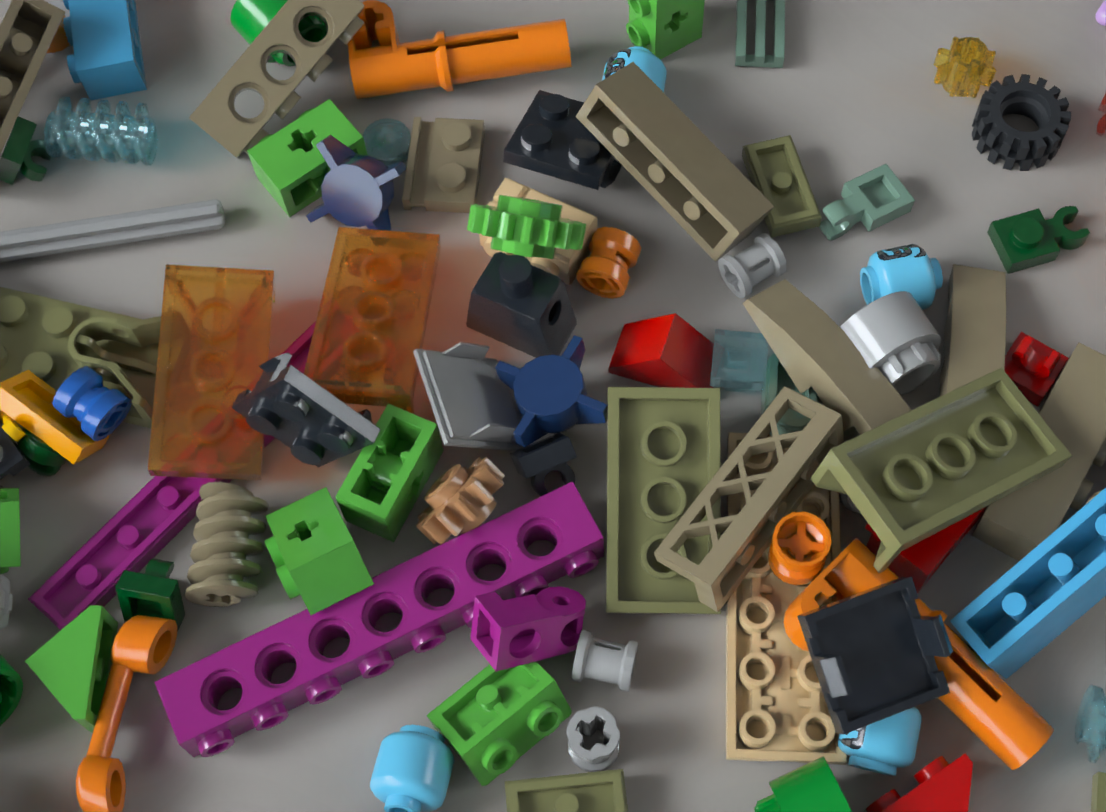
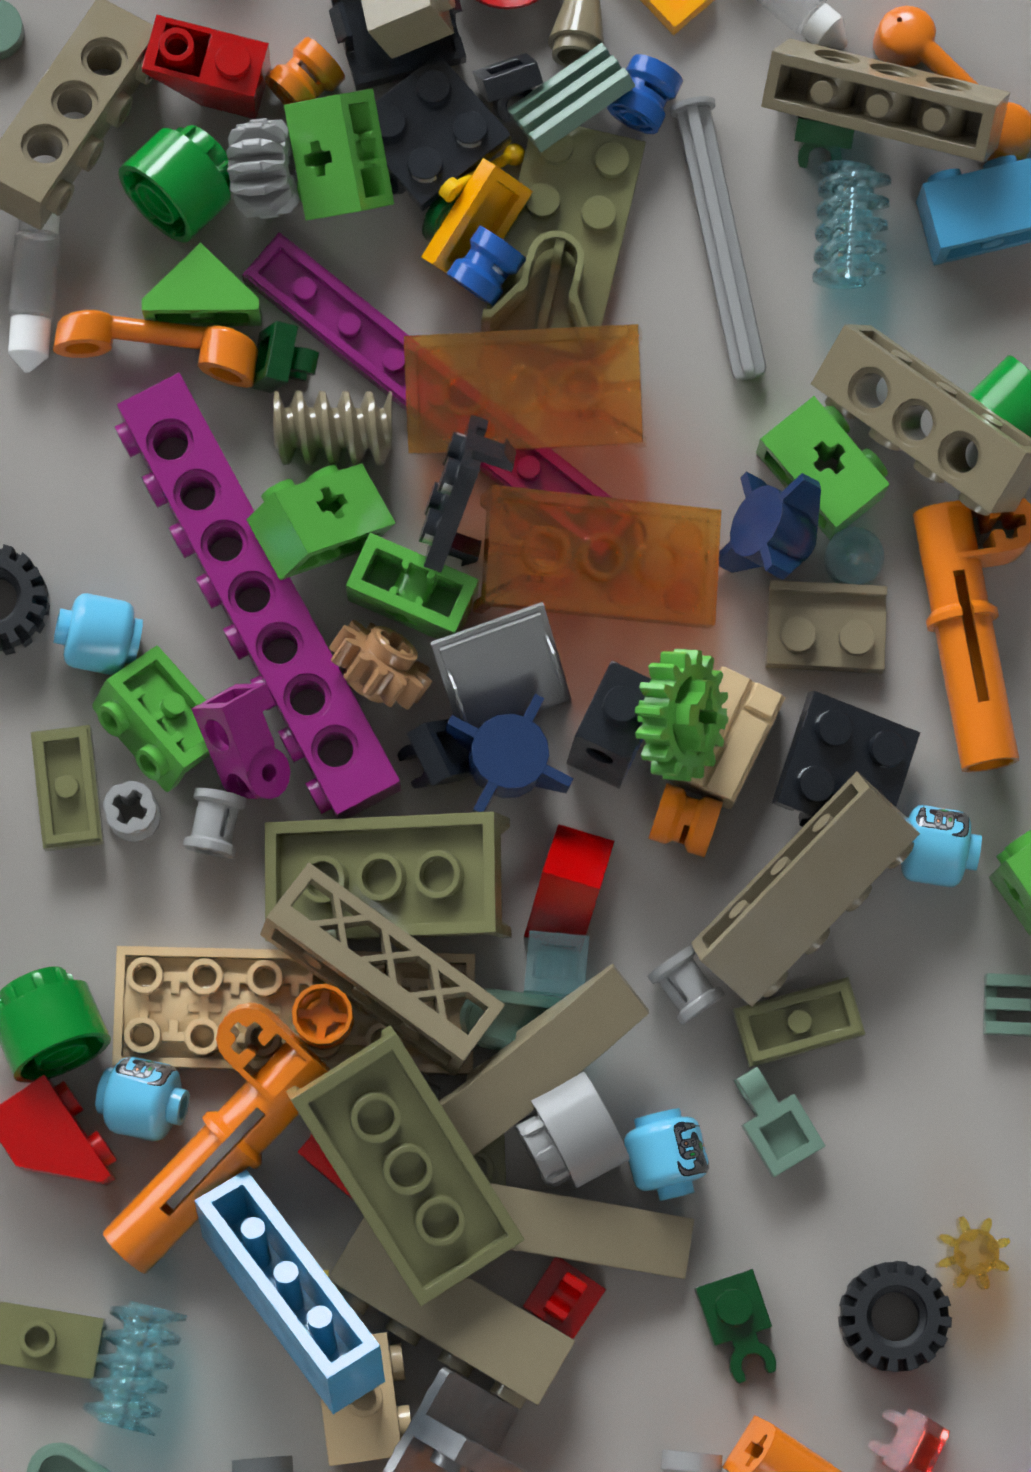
camera: 80 degrees right, 15 degrees up
(875, 654) = (195, 1079): black piece -> none

